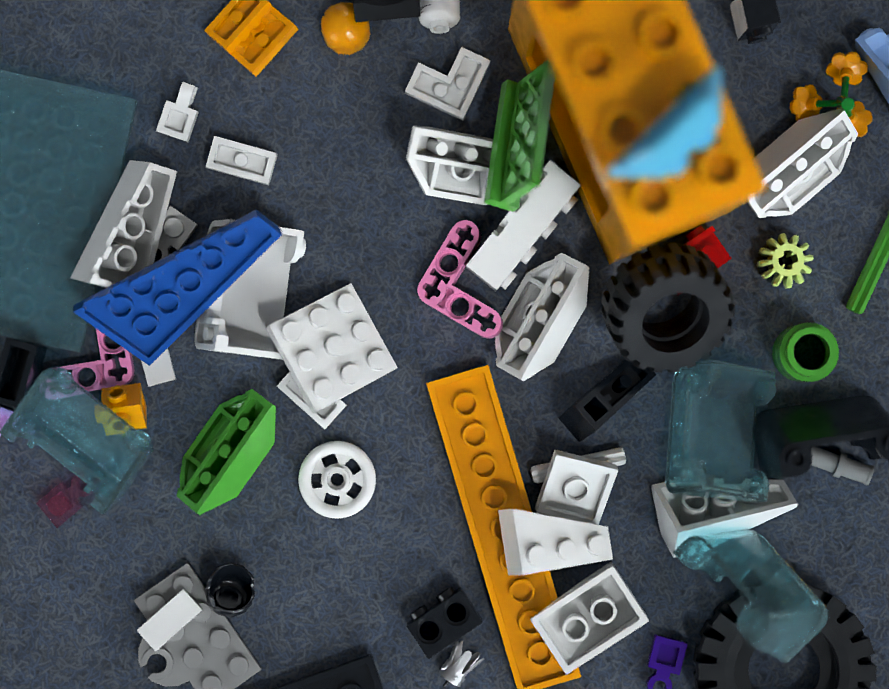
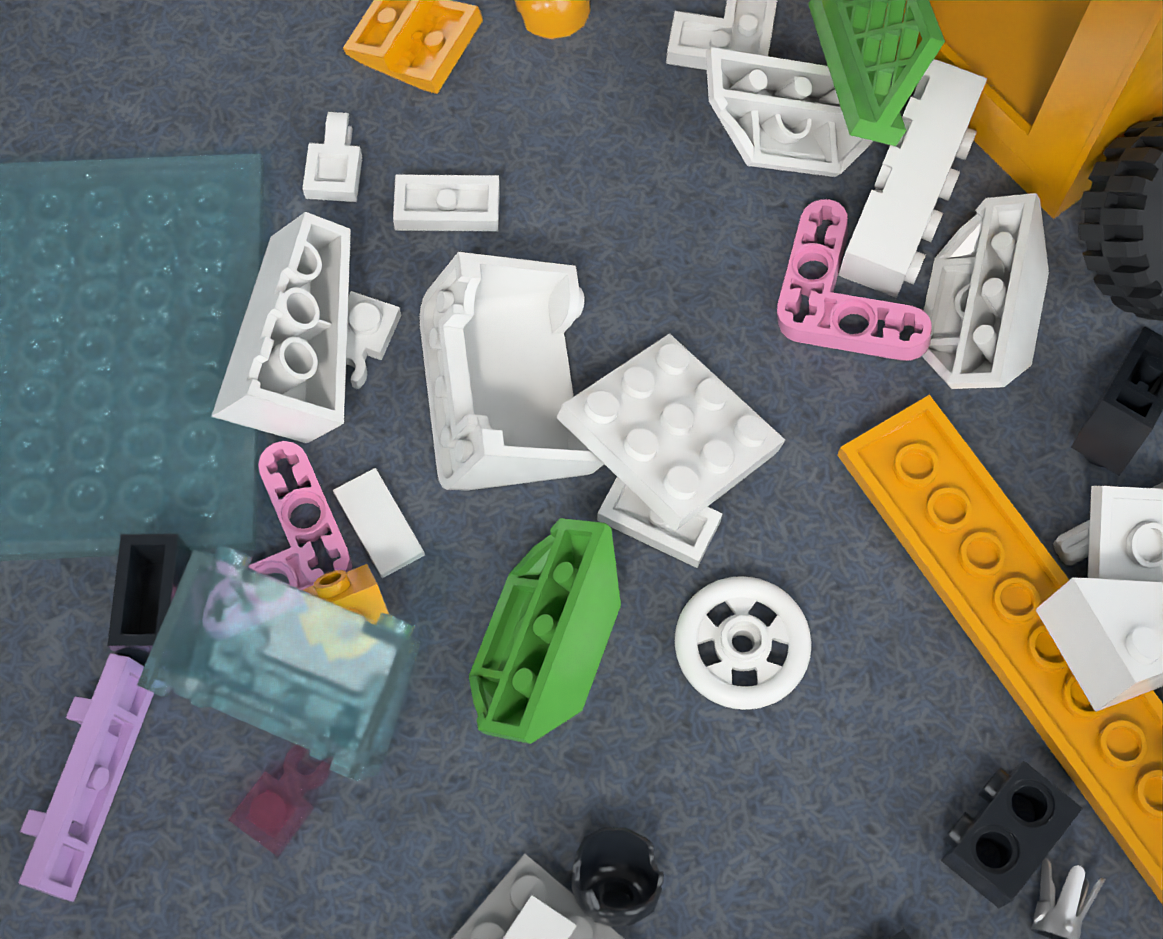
camera: 10 degrees left, 20 degrees down
(168, 296) = (379, 402): blue wing -> none

